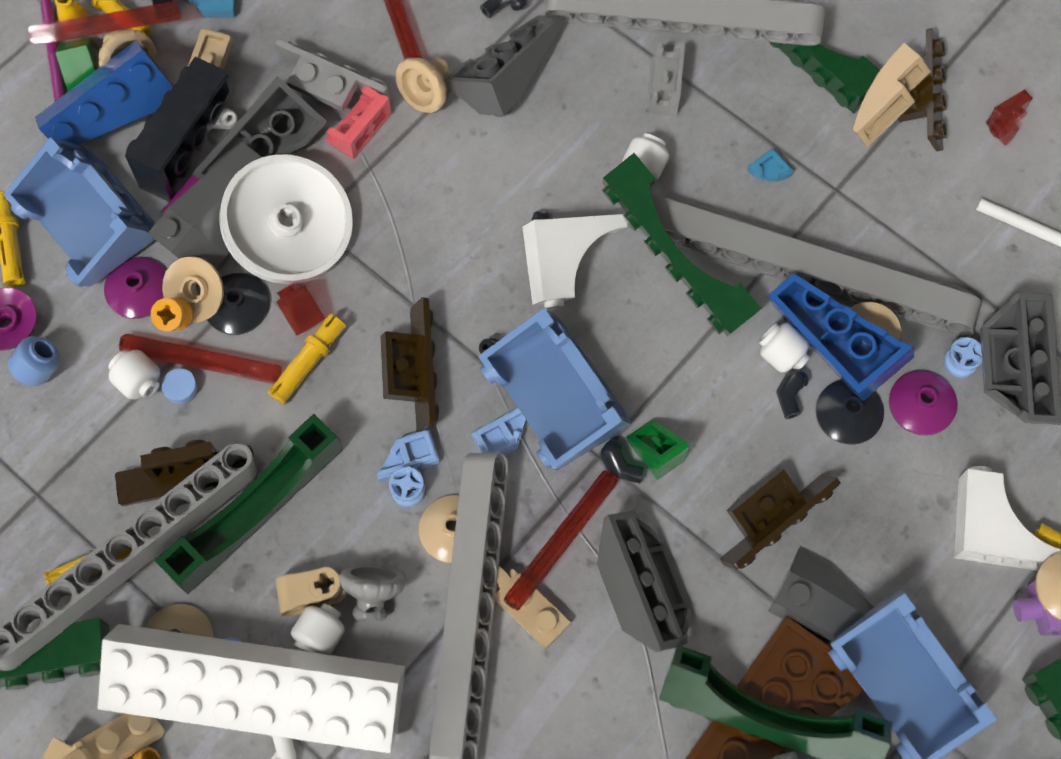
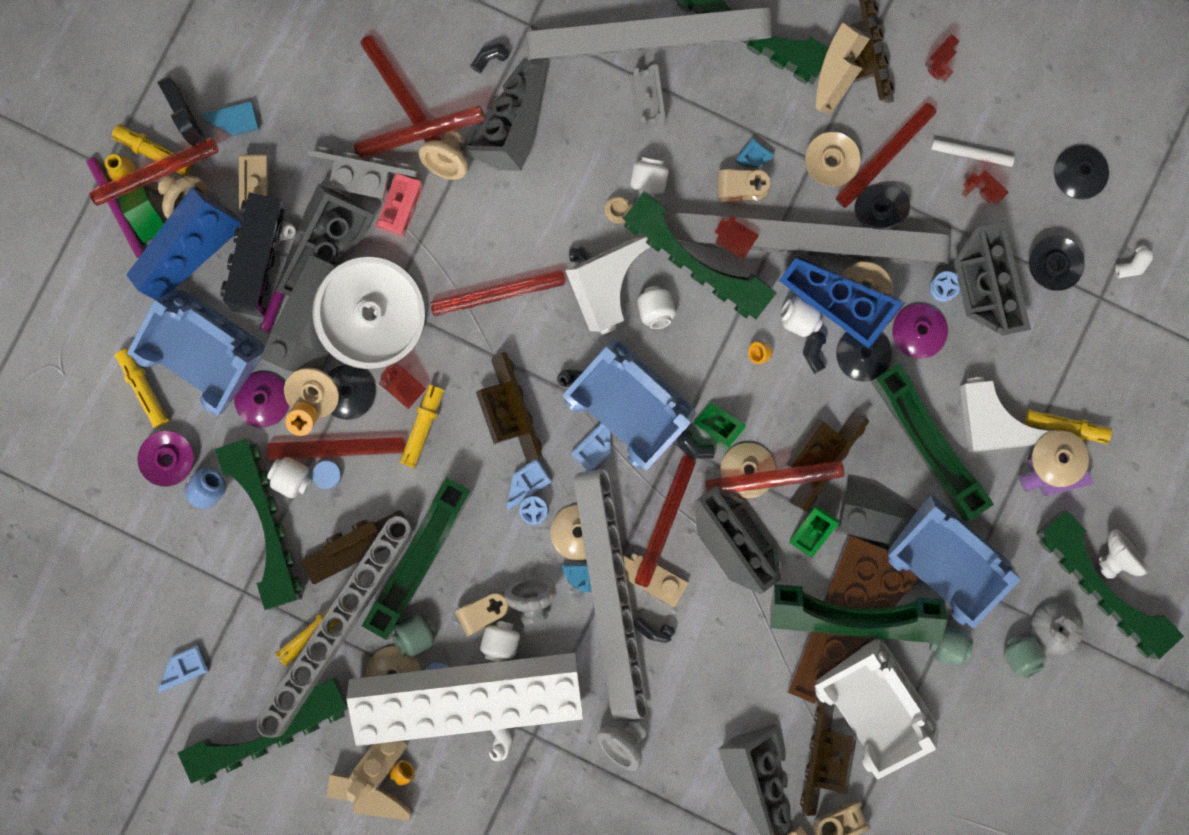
camera: 15 degrees left, 15 degrees up
(79, 491) = (278, 581): none -> dark green arch
(216, 595) = (414, 635): none -> sand green head
(402, 50) = (419, 131): none -> clear red axle
(436, 580) = (578, 576): none -> dark azure tile
(439, 238) = (497, 293): none -> clear red axle
(509, 672) = (652, 633): none -> black arm
(595, 184) = (615, 208): none -> tan plate
(616, 296) = (656, 307): none -> white head
(674, 525) = (747, 454): none -> tan dish
(716, 520) = (778, 477): none -> clear red axle
(726, 376) = (760, 352): none -> light orange hinge
(727, 236) = (735, 237): none -> clear red bracket
(743, 598) = (814, 531): none -> green slope
(746, 192) = (739, 185): none -> tan piece
(864, 178) = (838, 147): none -> tan dish
(907, 252) = (882, 207): none -> black dish
(922, 202) = (886, 155): none -> clear red axle
(934, 585) = (951, 474): none -> dark green arch
(1036, 260) = (989, 187): none -> clear red bracket

